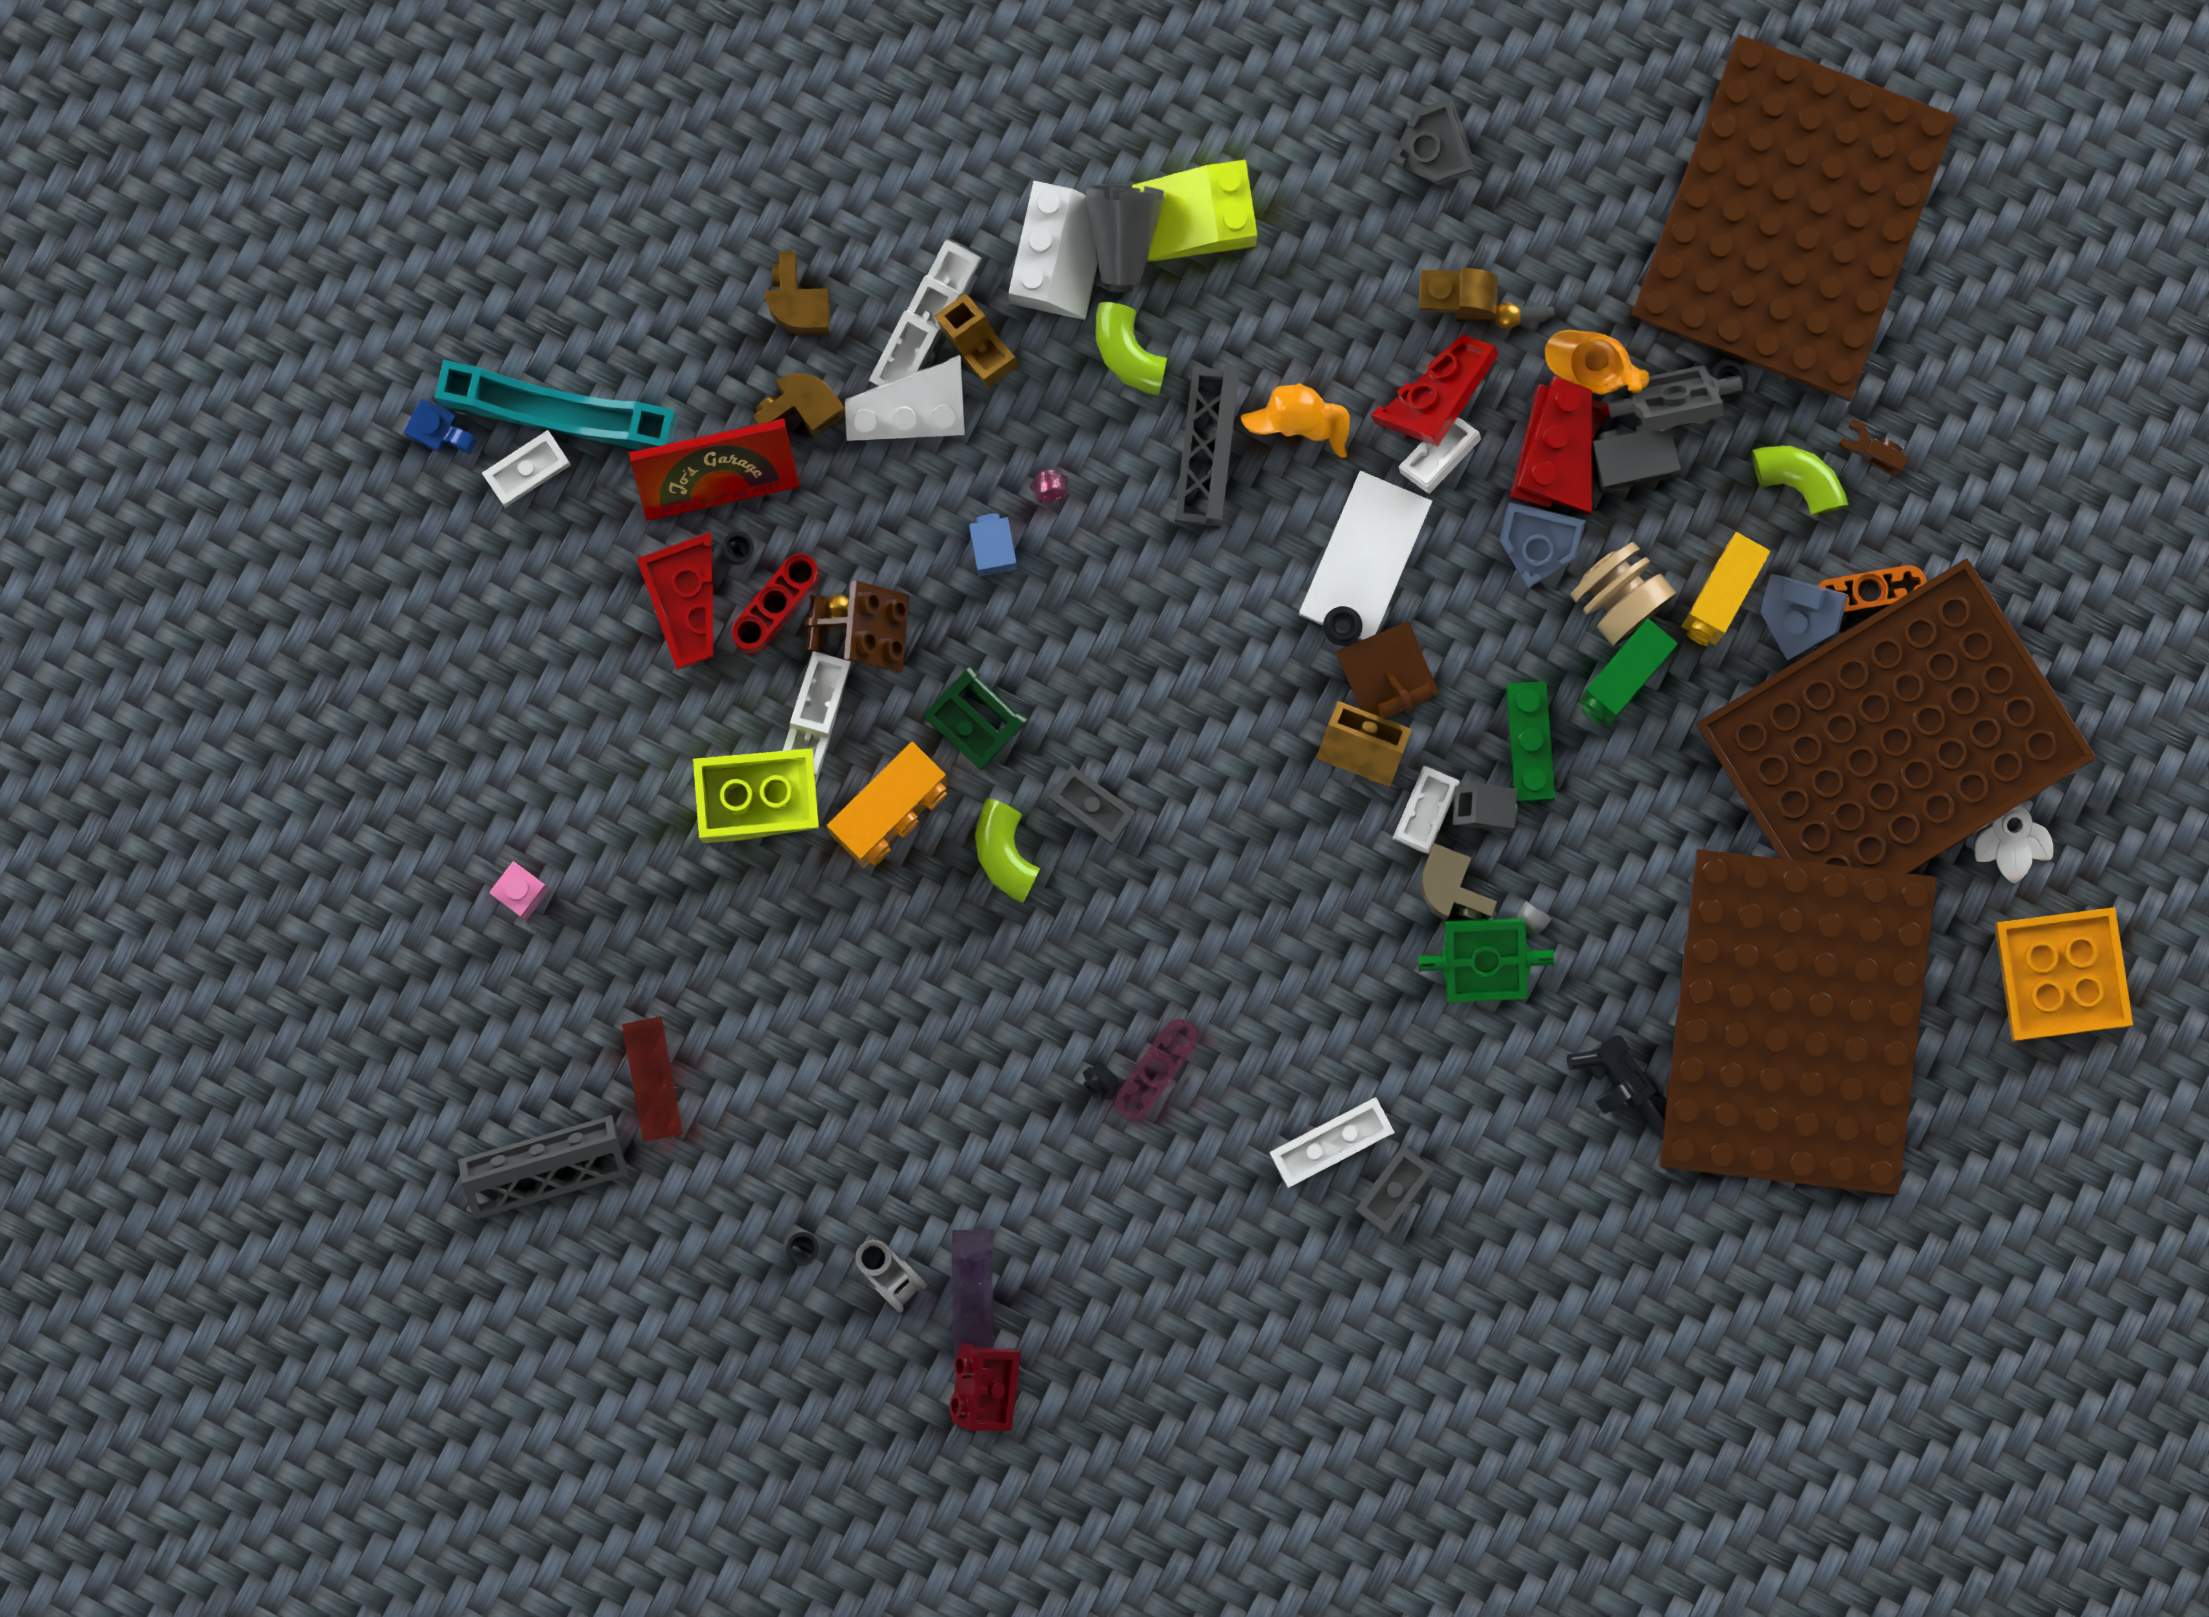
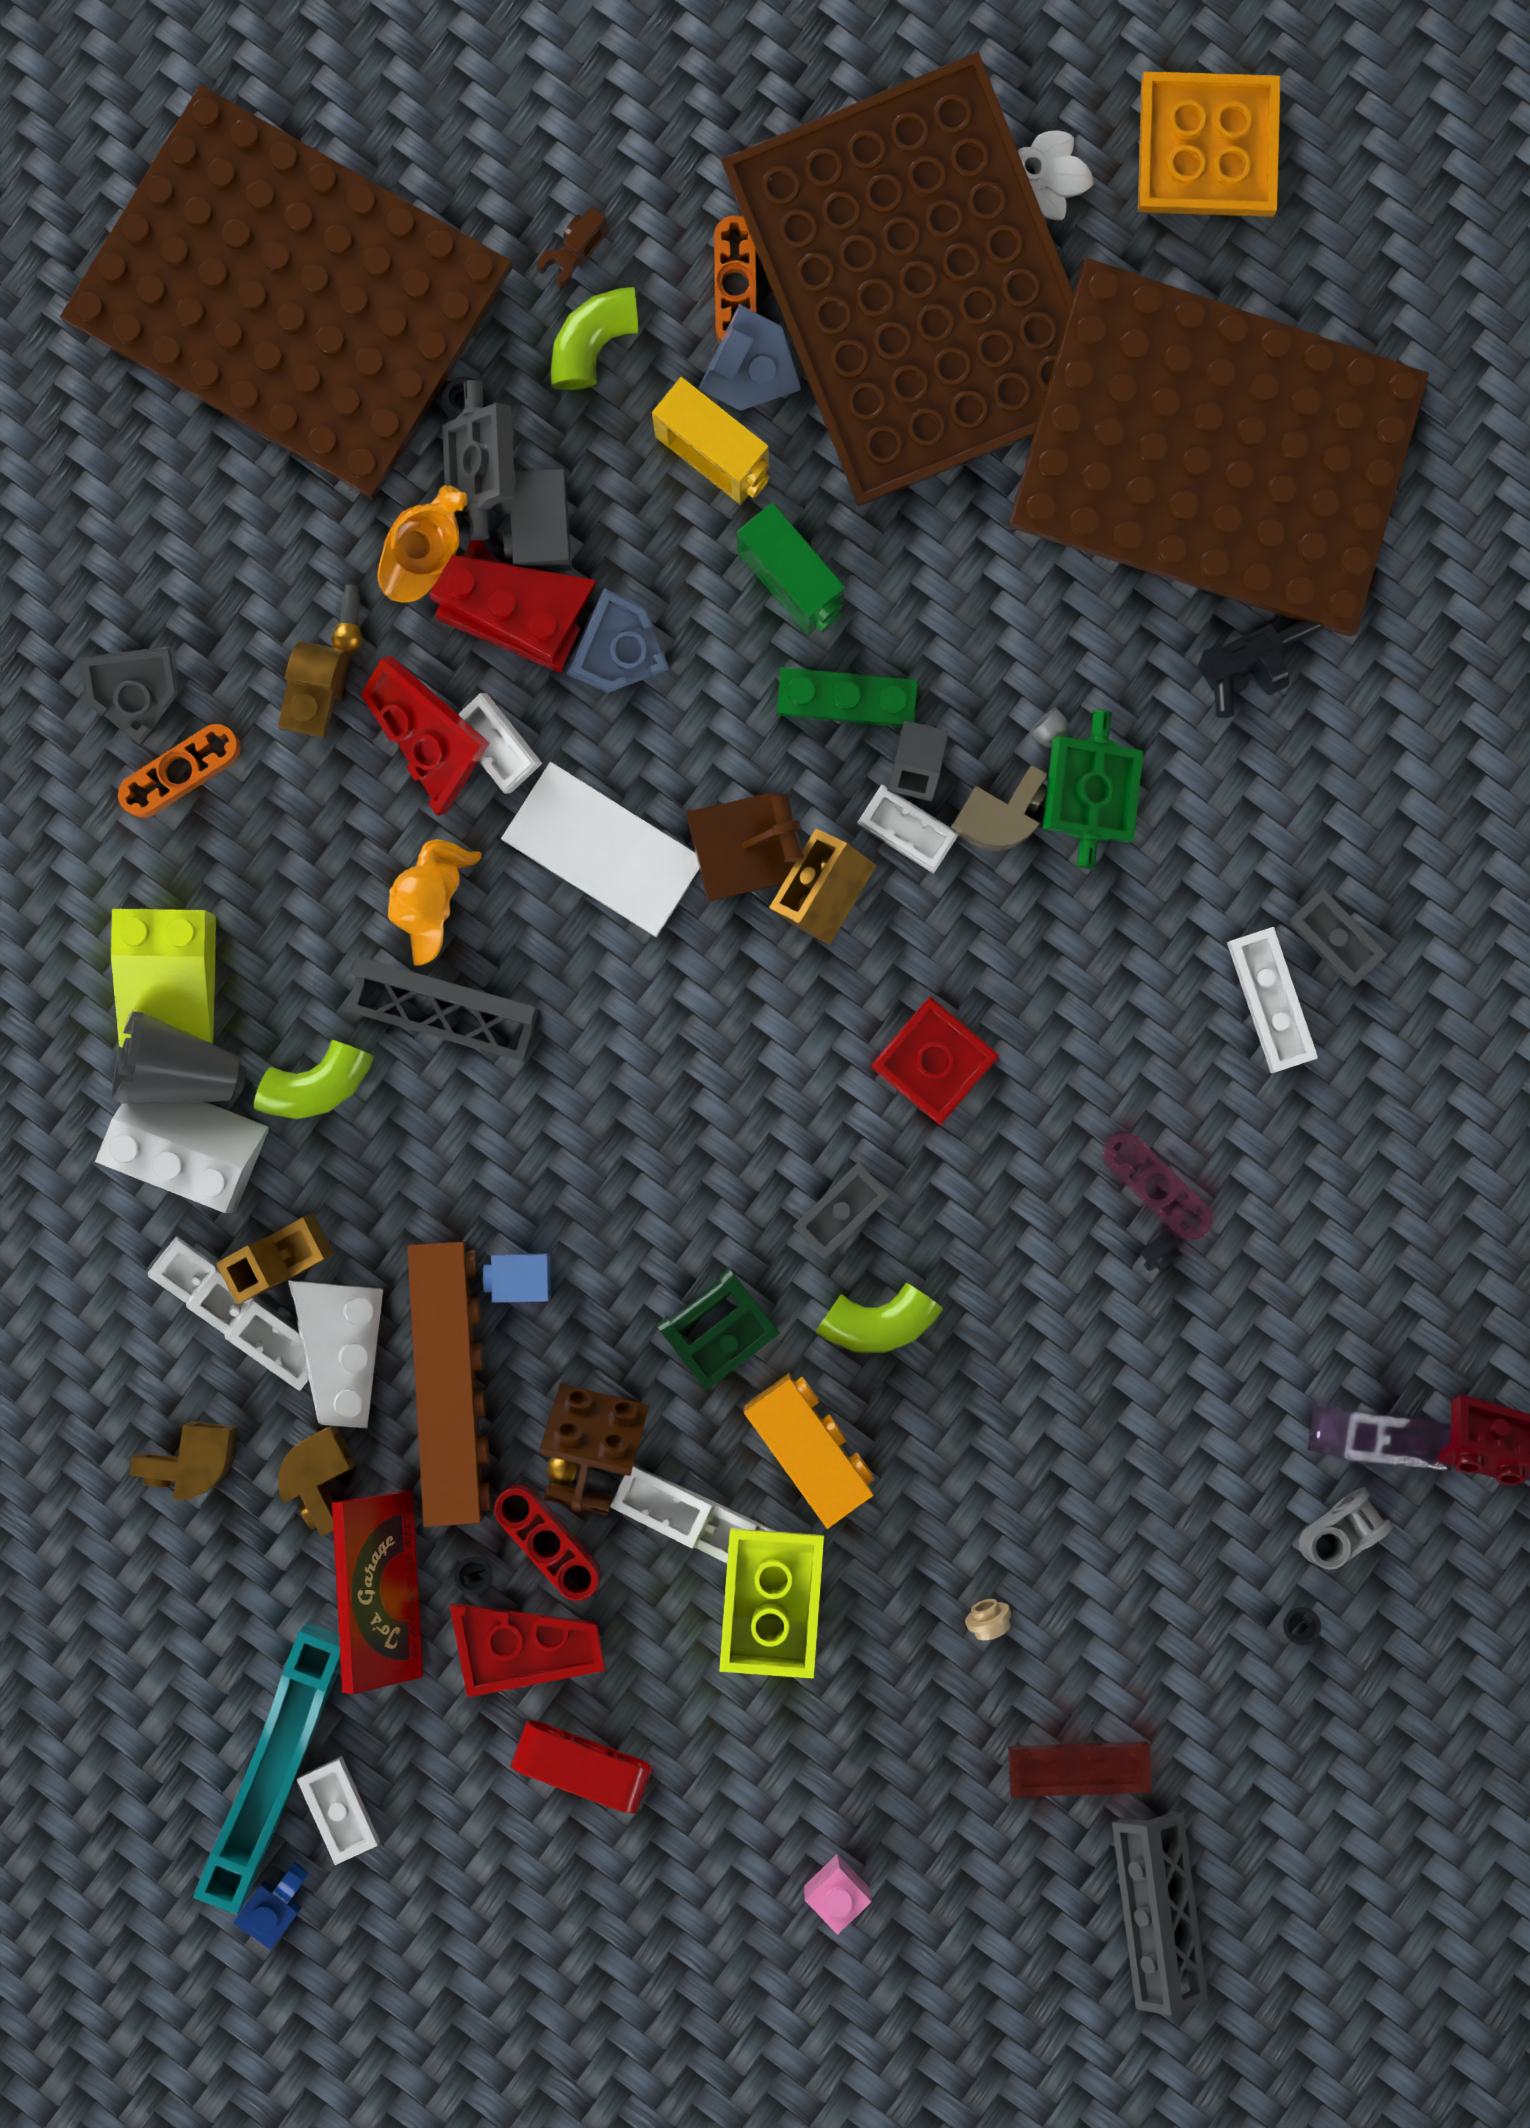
camera: 80 degrees left, 5 degrees up
(592, 663) = (581, 1766): none -> red beam
(767, 983) = (989, 1619): none -> tan plate
(895, 499) = (447, 1383): none -> dark orange brick
(1049, 486) = (460, 1200): clear pink plate -> none
(1232, 865) = (934, 1061): none -> red tile
(1344, 183) = (156, 798): none -> orange beam
(1347, 614) = (681, 873): black plate -> none
(1622, 593) = (698, 559): tan wheel -> none

